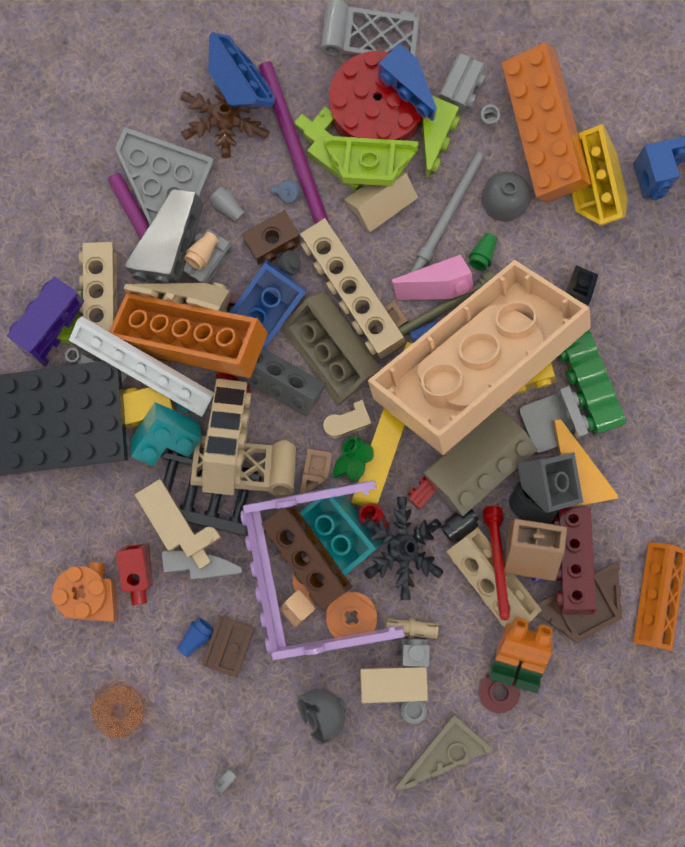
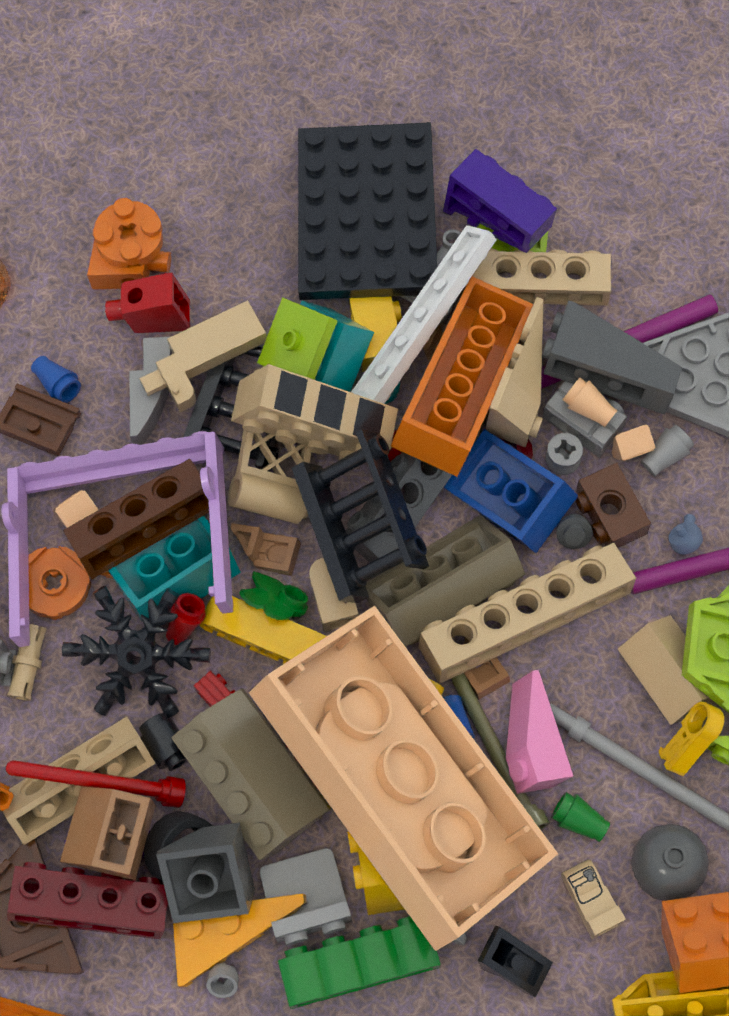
camera: 100 degrees right, 10 degrees down
(167, 454) = (297, 339): none -> lime plate
(227, 224) = (633, 443): none -> light nougat slope
(235, 277) = (563, 462): none -> light grey wheel
(319, 413) = (326, 517): none -> black fence
(431, 183) = (692, 739): none -> yellow piece
(536, 241) = (592, 899): none -> tan leg
(611, 469) = (229, 984): none -> light grey hinge

